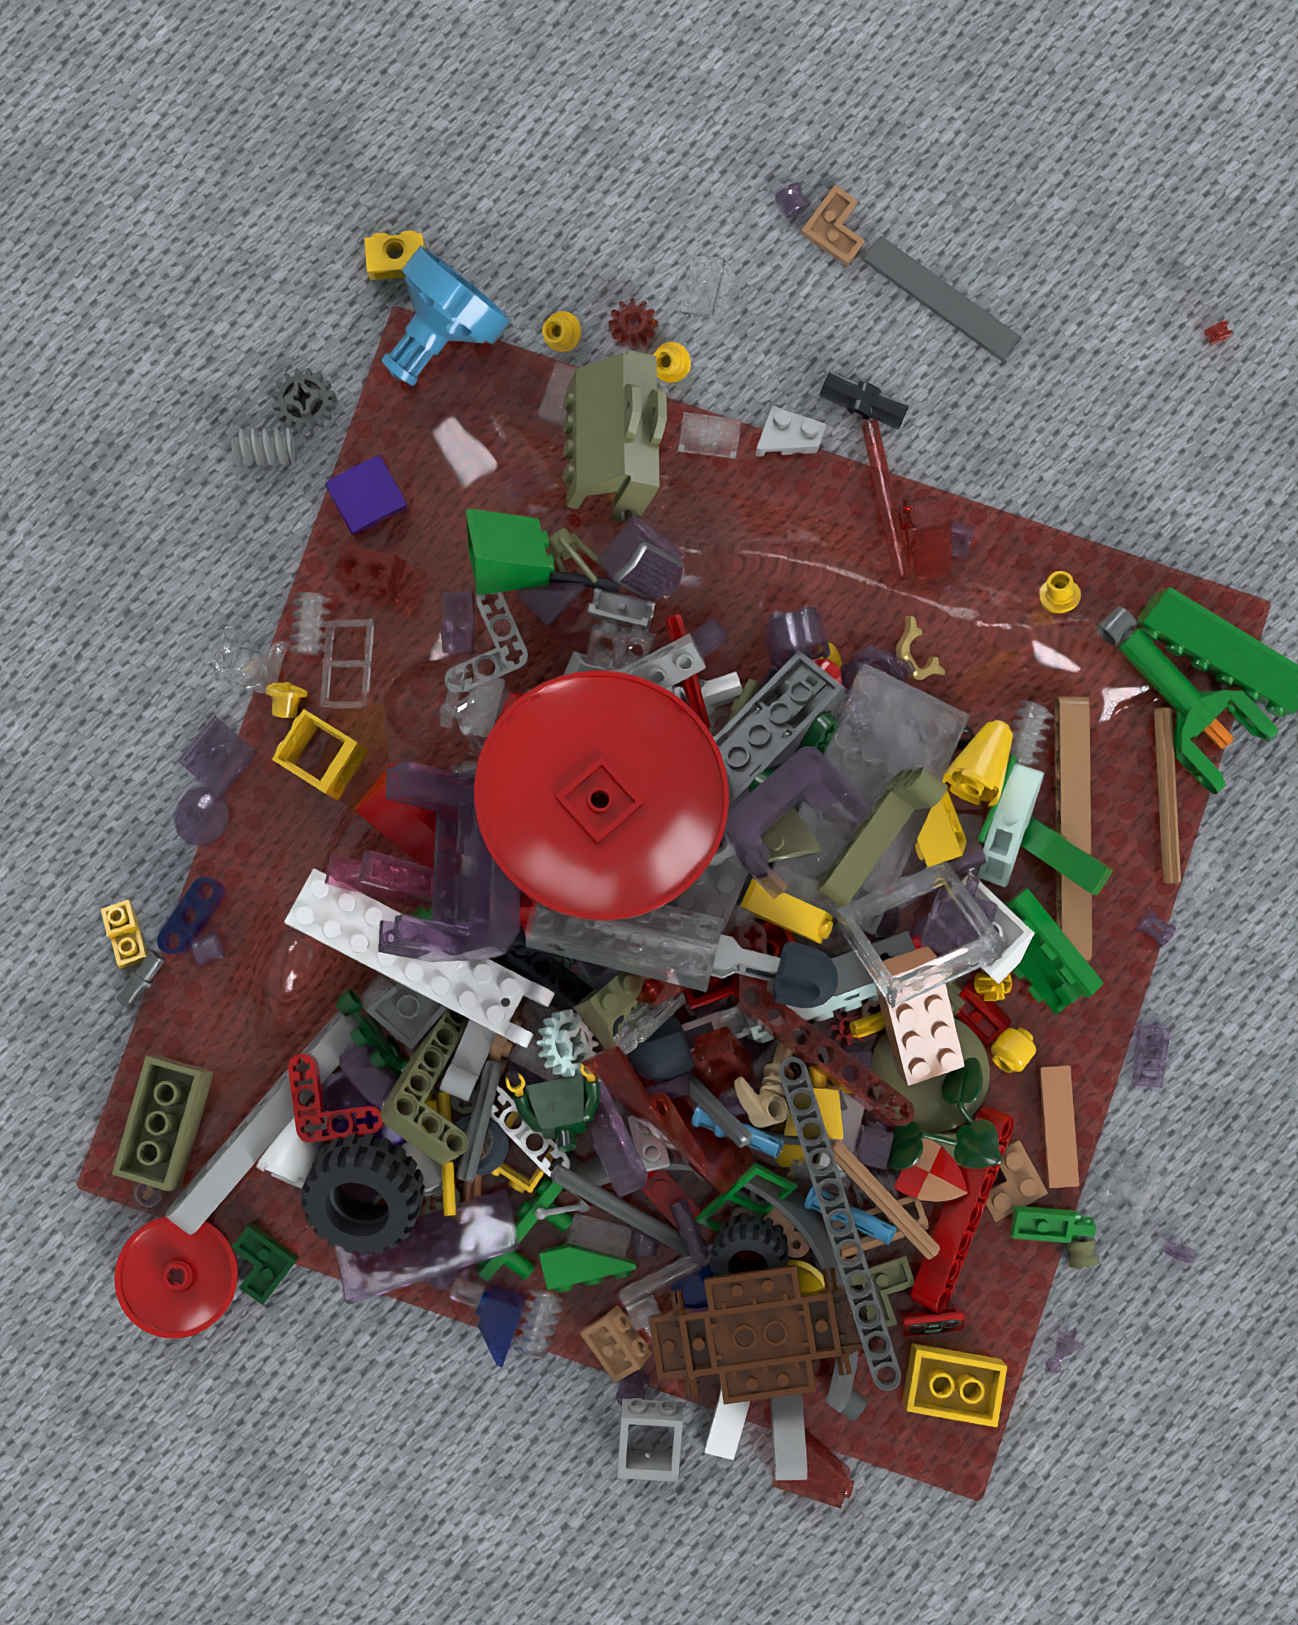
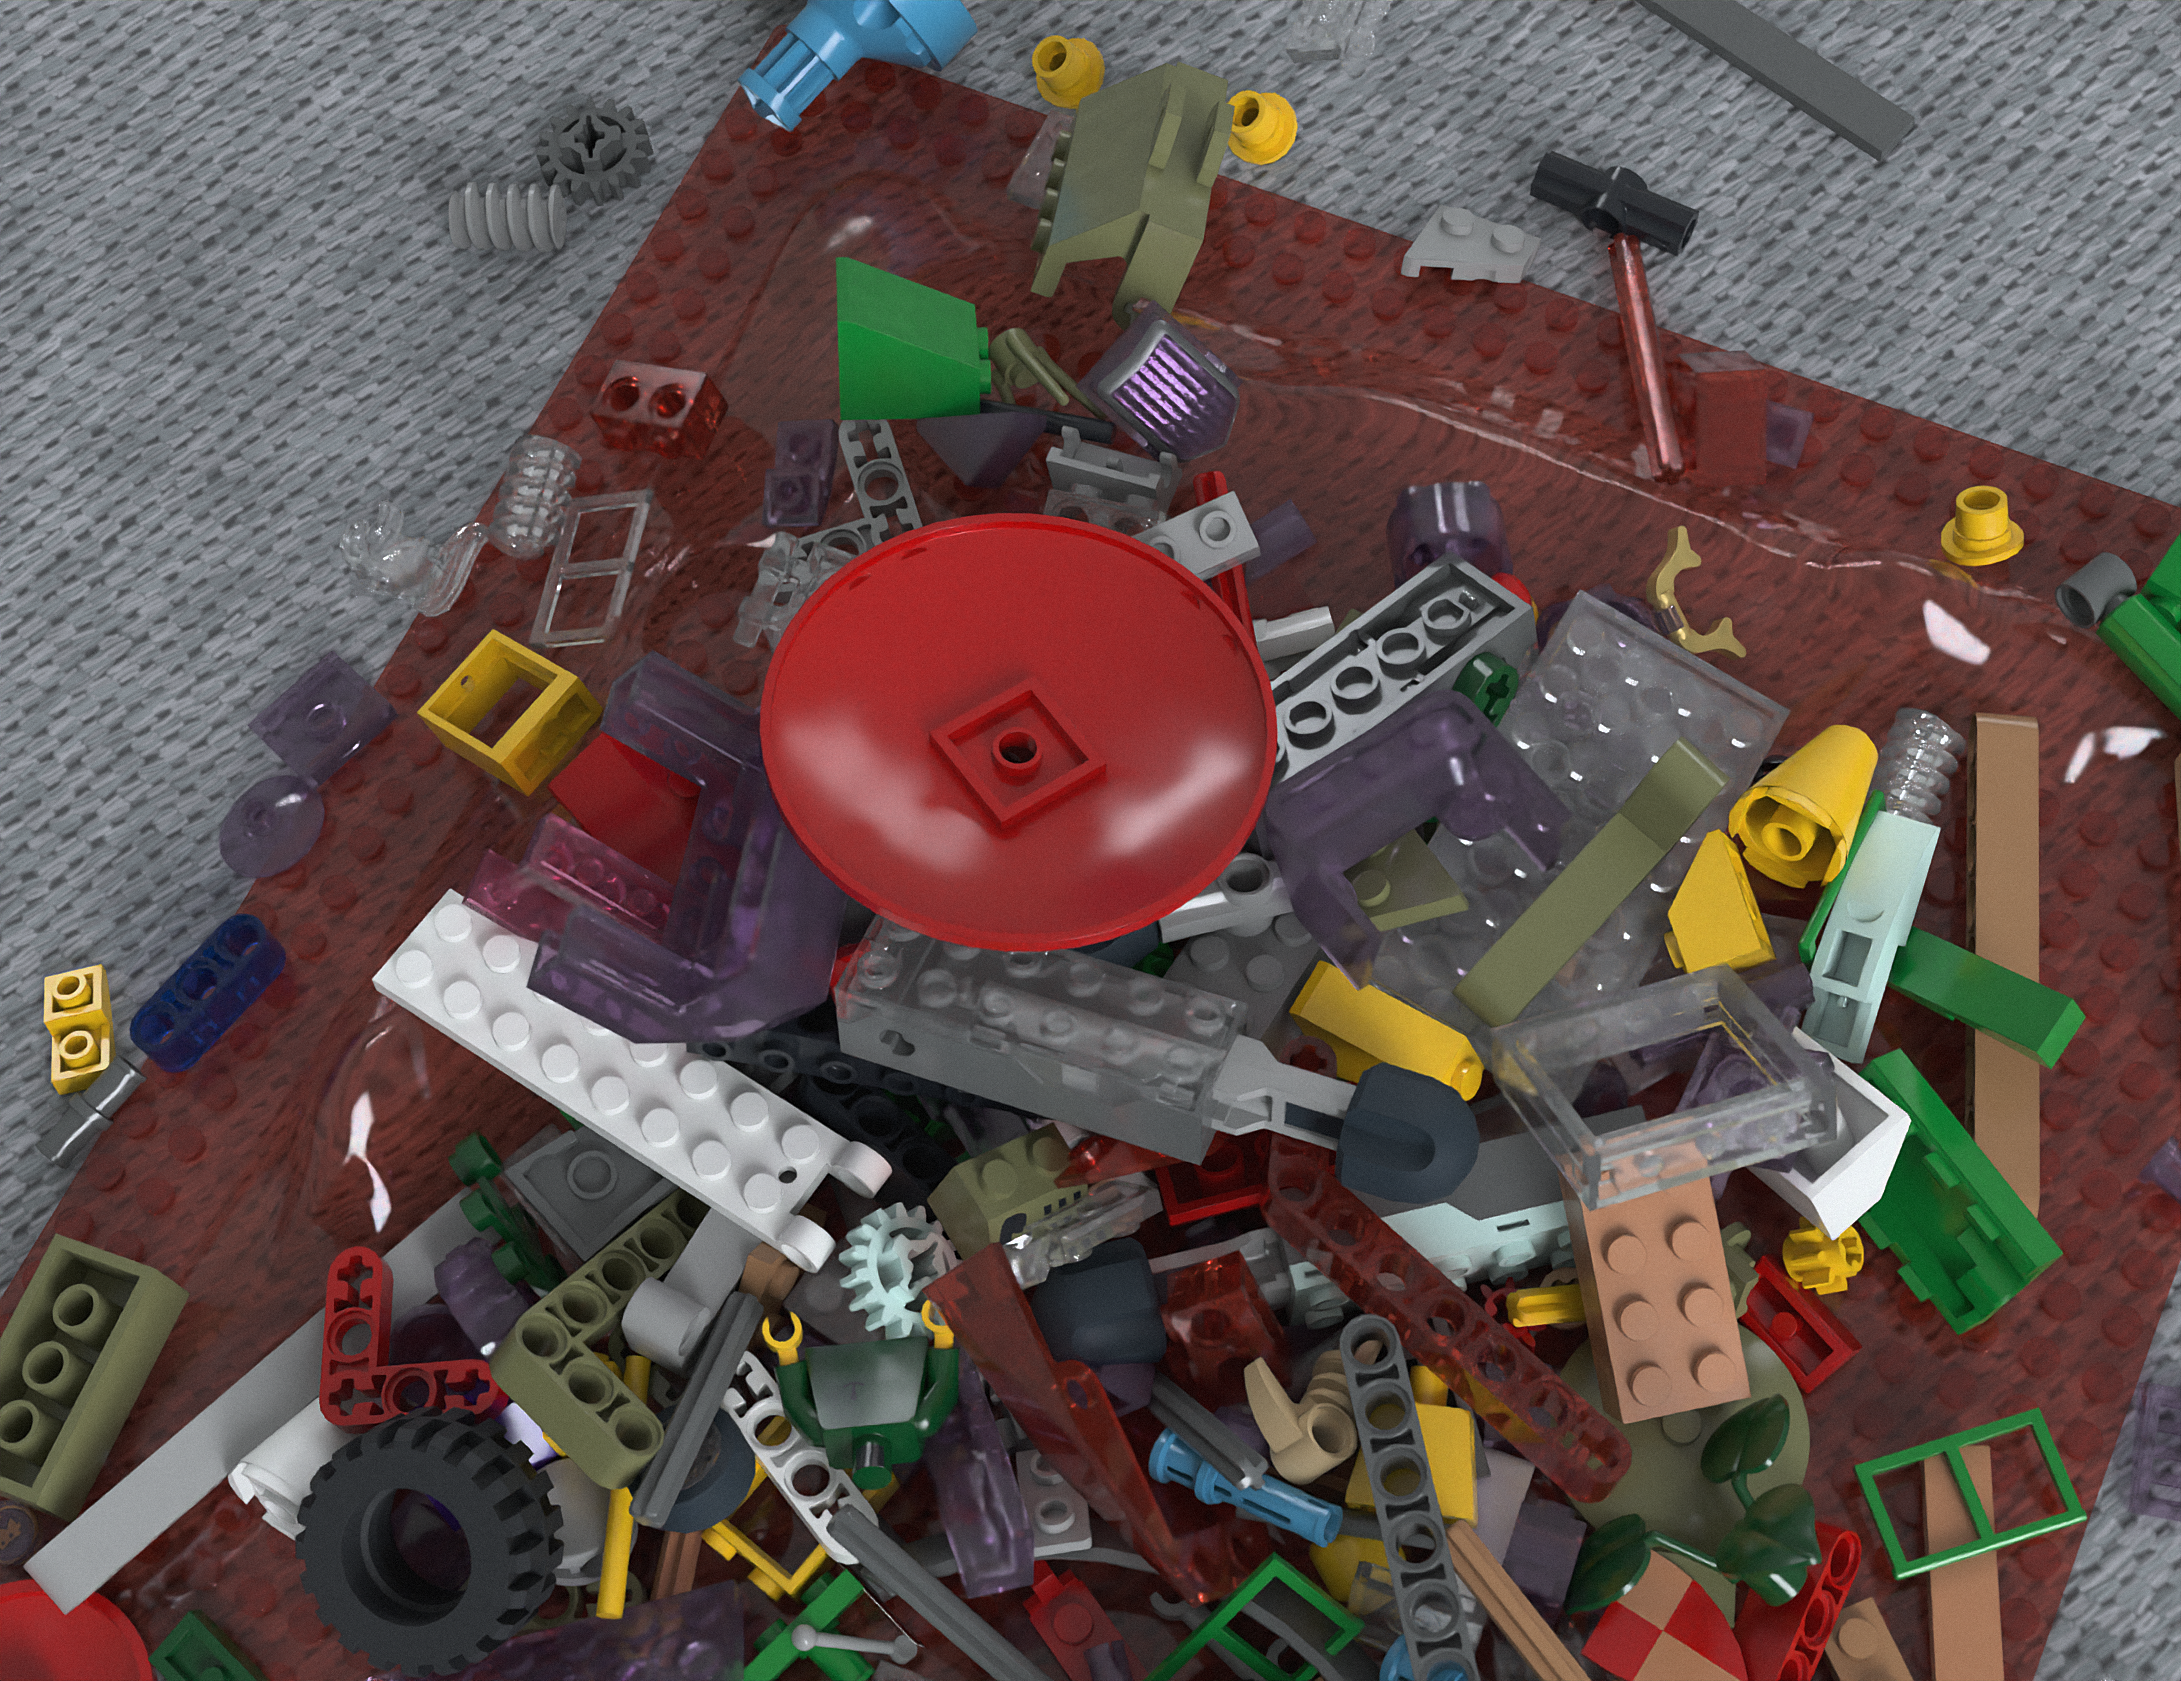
camera: 20 degrees right, 20 degrees down
(207, 948) = (227, 1054): clear purple wheel -> none
(285, 699) = (465, 618): yellow piece -> none
(365, 494) = (676, 297): dark purple slope -> none
(638, 332) = (1204, 49): clear red gear -> none
(709, 435) = (1318, 231): clear brick -> none
(1013, 1050) = (1863, 1398): yellow head -> none
(1070, 1110) = (1950, 1448): none -> green window

